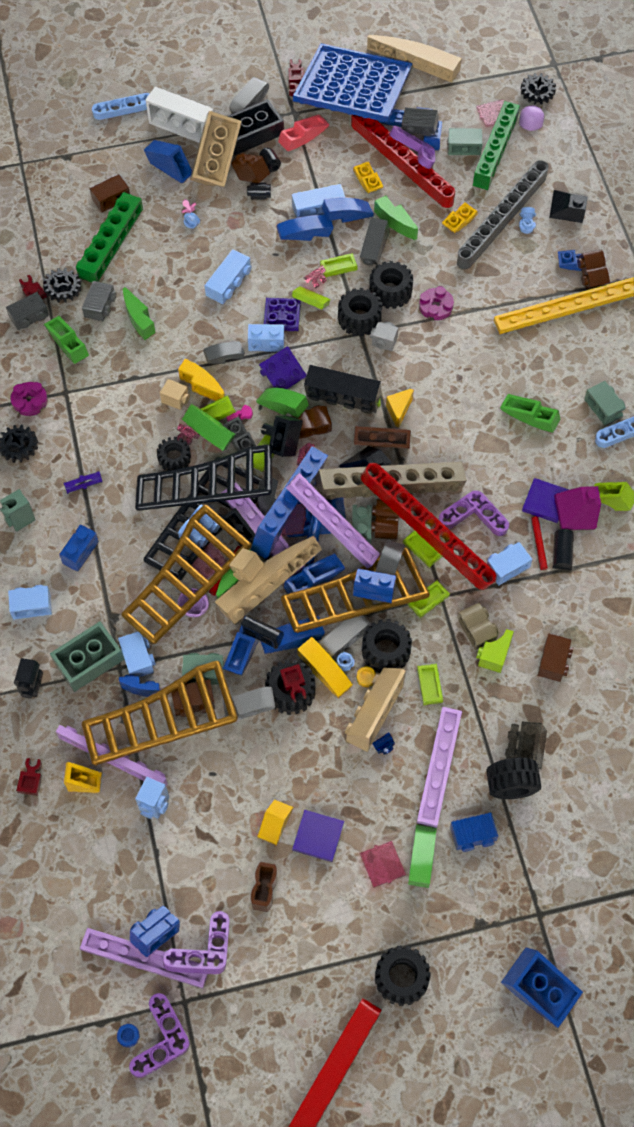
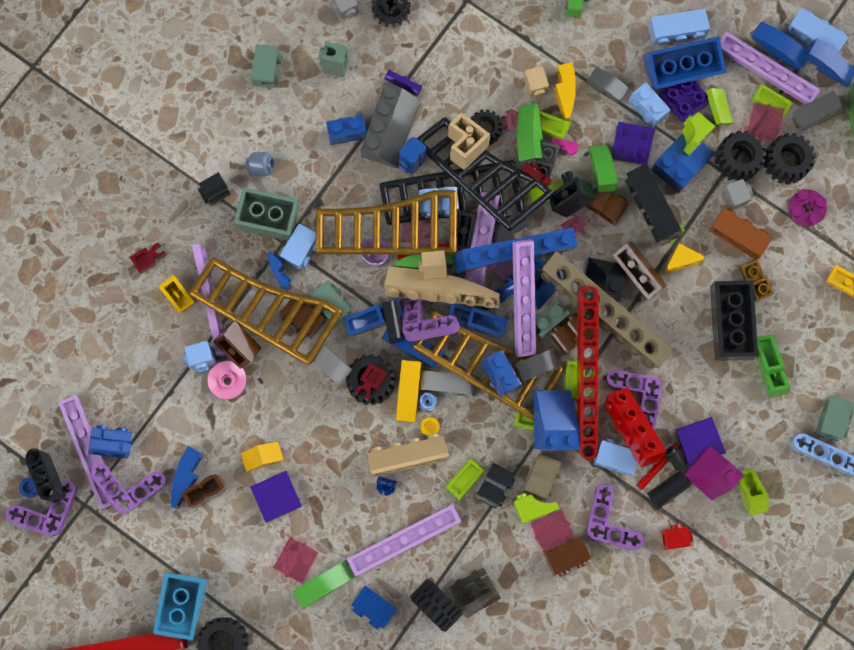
camera: 45 degrees right, 15 degrees up
(30, 602) = (274, 134): light blue brick -> none
(42, 630) = (260, 164): none -> sand blue head
(106, 517) = (390, 125): none -> dark grey slope
(121, 1009) = (37, 471): none -> black beam
(146, 516) = (412, 156): none -> blue brick
(169, 761) = (237, 344): none -> reddish brown brick
(173, 466) = (469, 139): none -> tan brick
(187, 787) = (217, 378): none -> bright pink dish
(236, 893) = (185, 475): none -> blue slope
(239, 444) = (533, 170): none -> dark red plate
(257, 292) = (684, 63): none -> blue slope
(286, 616) = (417, 328): none -> medium lavender beam
(312, 249) = (768, 69): none -> lavender plate
(315, 324) = (696, 131): none -> lime arch
(316, 274) = (743, 91): clear pink tile -> none
(328, 349) = (678, 167): none -> blue slope
(341, 983) = (180, 605): none -> dark azure slope
(348, 278) = (765, 121): none -> clear pink piece
(391, 632) = (472, 407): black tyre -> none
(416, 356) = (740, 233): none -> dark orange brick
(444, 581) = (555, 421): none -> blue slope
(454, 665) = (494, 486): none -> black brick
(459, 375) = (753, 271): none -> pearl gold slope
(476, 407) = (734, 320): none -> black brick
(497, 530) = (634, 427): none -> red brick
(525, 654) = (552, 531): none -> clear pink piece
(539, 524) = (676, 460): none -> pearl dark grey pin
(550, 615) = (602, 522): none -> medium lavender beam
(604, 572) = (676, 537): none -> red brick

